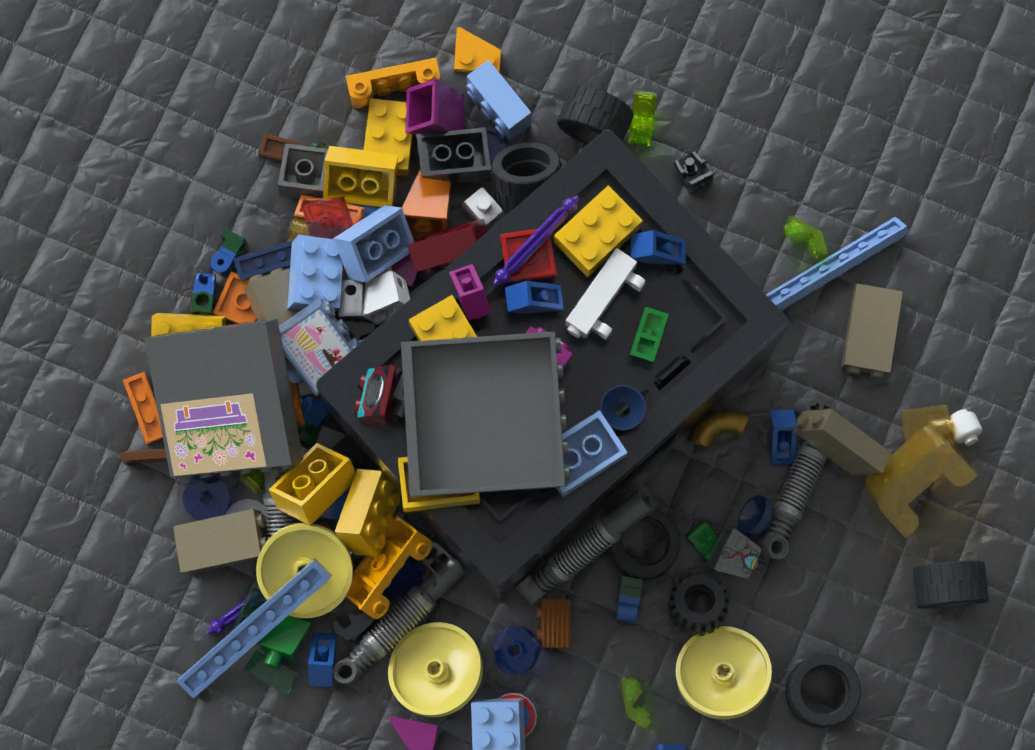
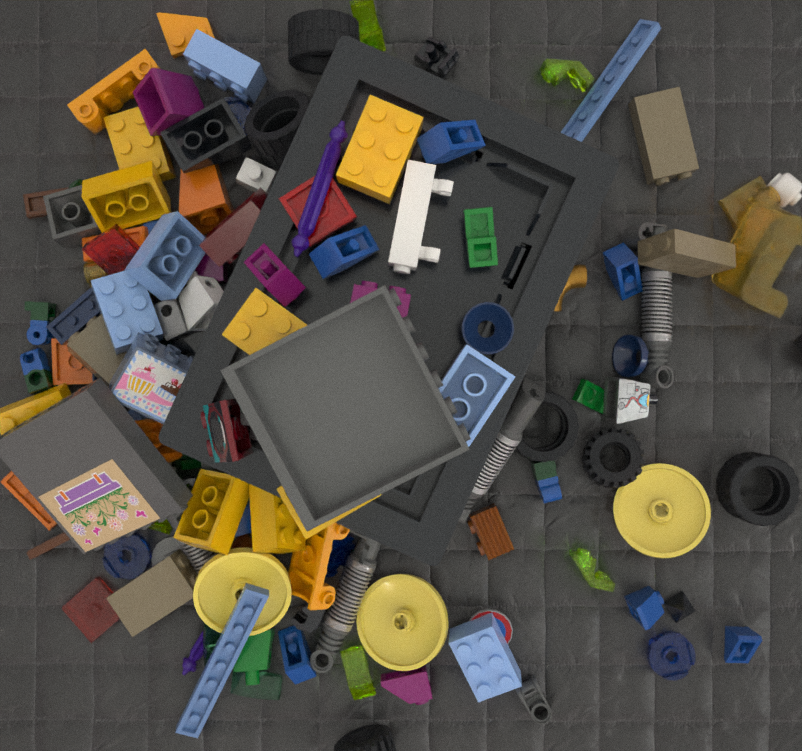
camera: 20 degrees left, 10 degrees up
(152, 535) = (91, 609): none -> clear red plate
(372, 702) = (358, 672): none -> clear neon green slope
(528, 646) = (475, 563): clear blue plate -> none

